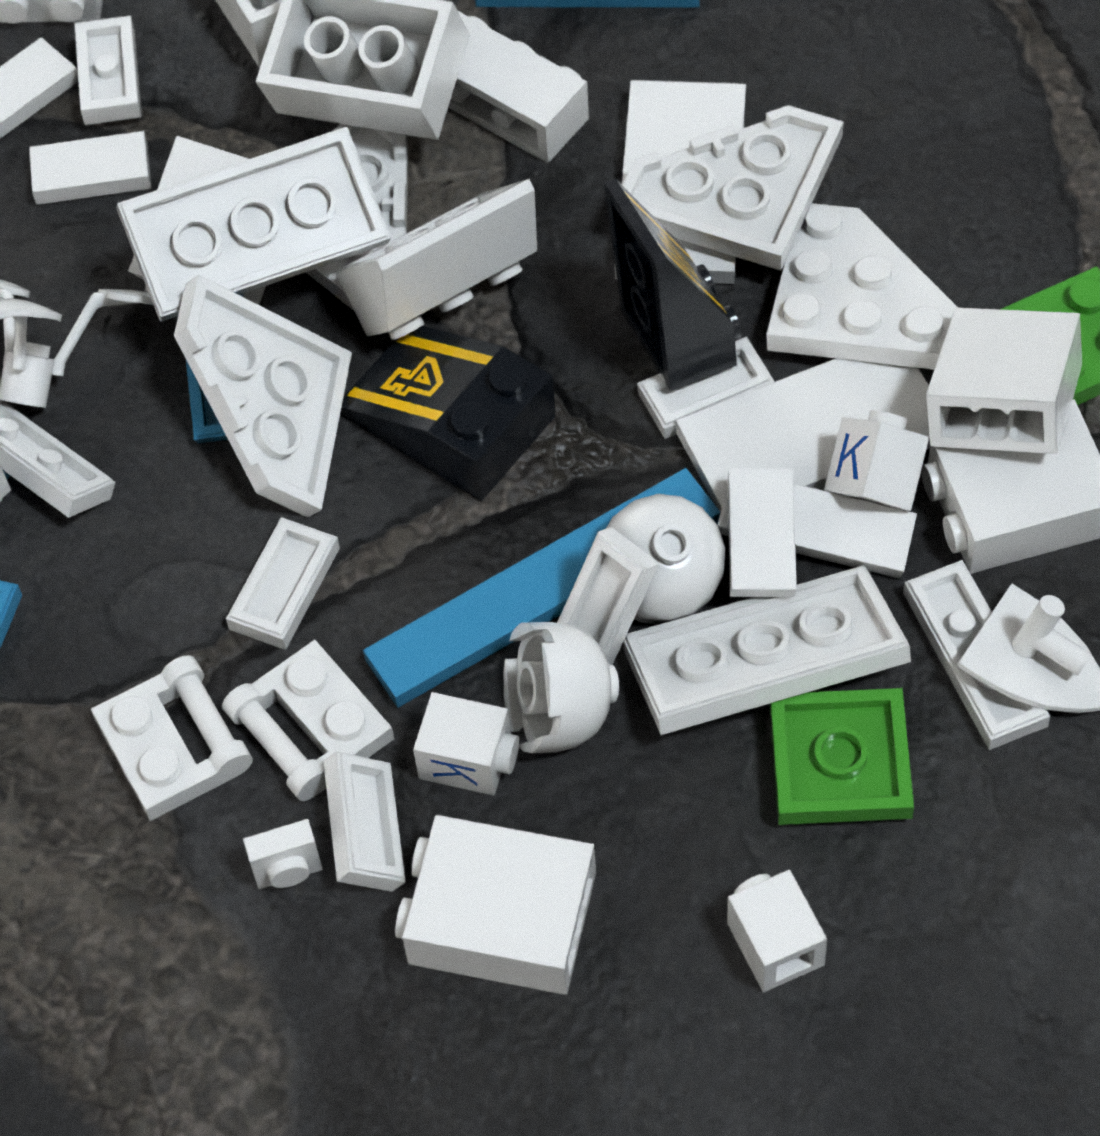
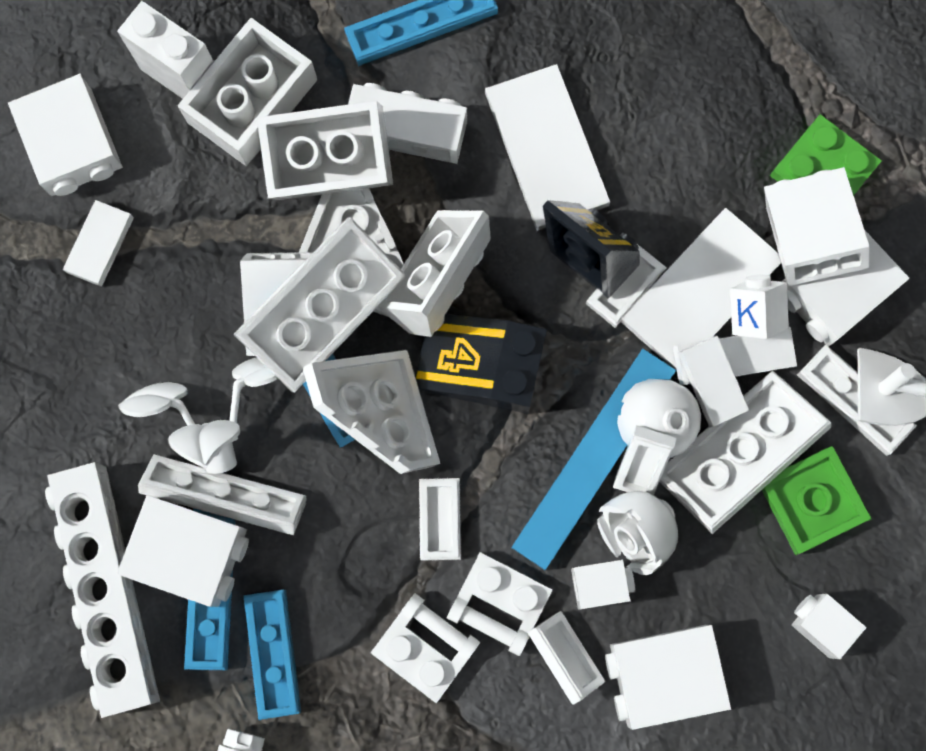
camera: 25 degrees left, 20 degrees up
(90, 167) = (175, 281): white tile -> none
(107, 70) = (151, 207): white plate -> none
(283, 855) = (533, 700): white plate -> none
(741, 186) = (589, 145): white plate -> none
(856, 296) = (690, 190): white plate -> none

